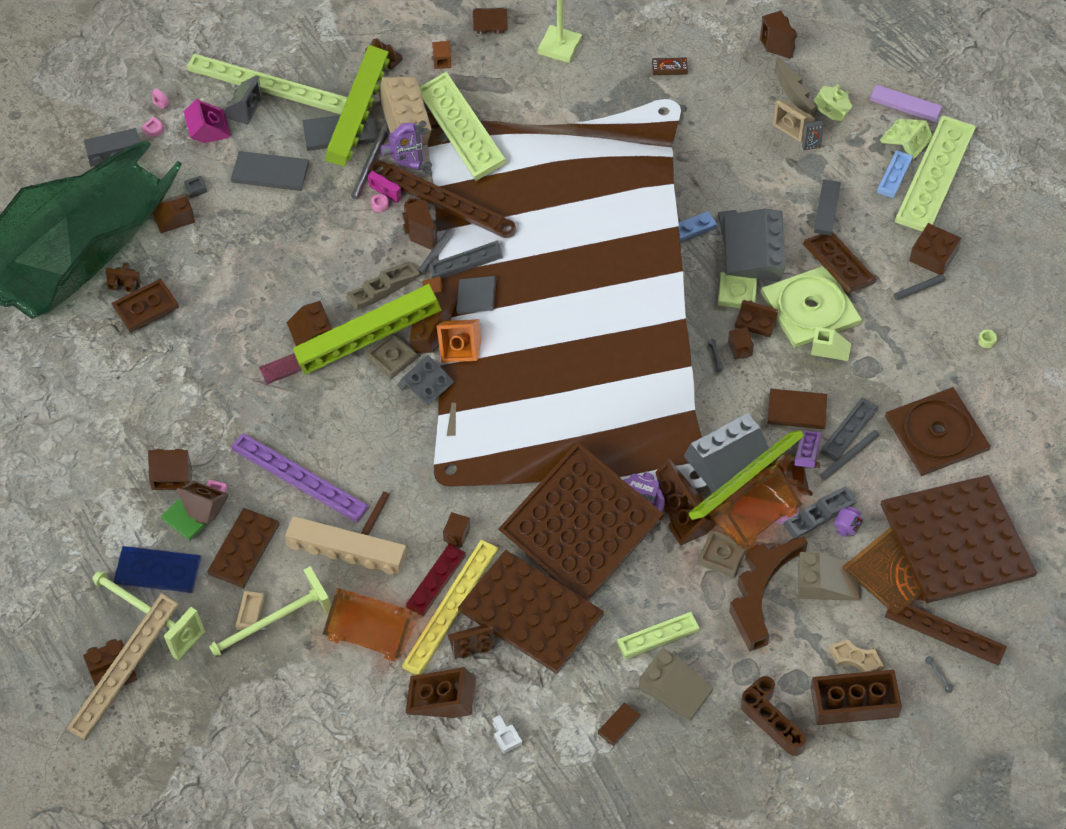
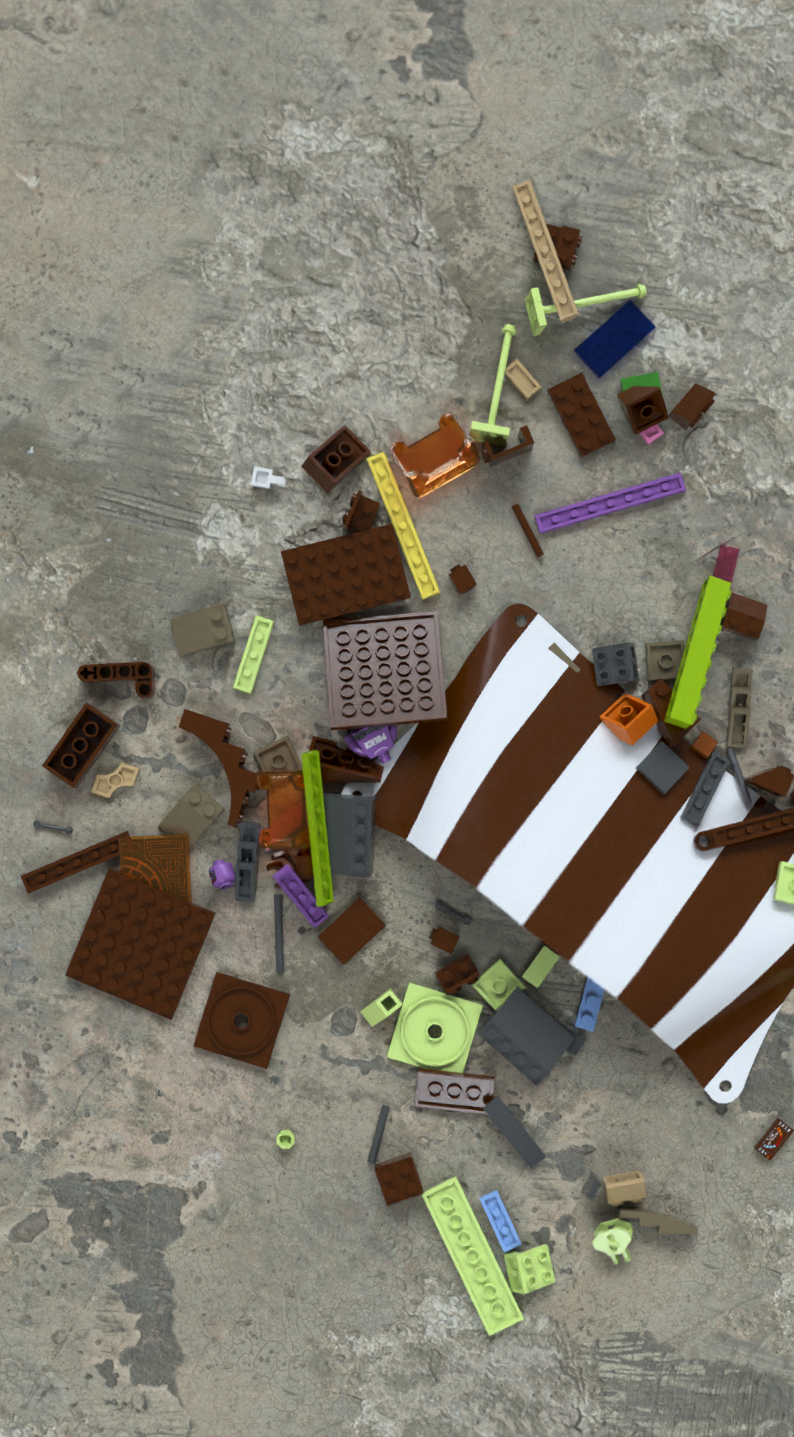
camera: 135 degrees right, 30 degrees up
(320, 564) = (526, 445): none -> reddish brown panel
(345, 545) = (517, 488): tan brick -> none
(436, 580) = (434, 533): dark red plate -> none
(618, 724) = (208, 565): reddish brown tile -> none
(699, 274) = (540, 966): none -> yellowish green tile
(778, 35) = (723, 1257): reddish brown slope -> none
(849, 429) = (300, 954): dark grey tile -> none
(906, 103) = (565, 1303): lavender tile -> none

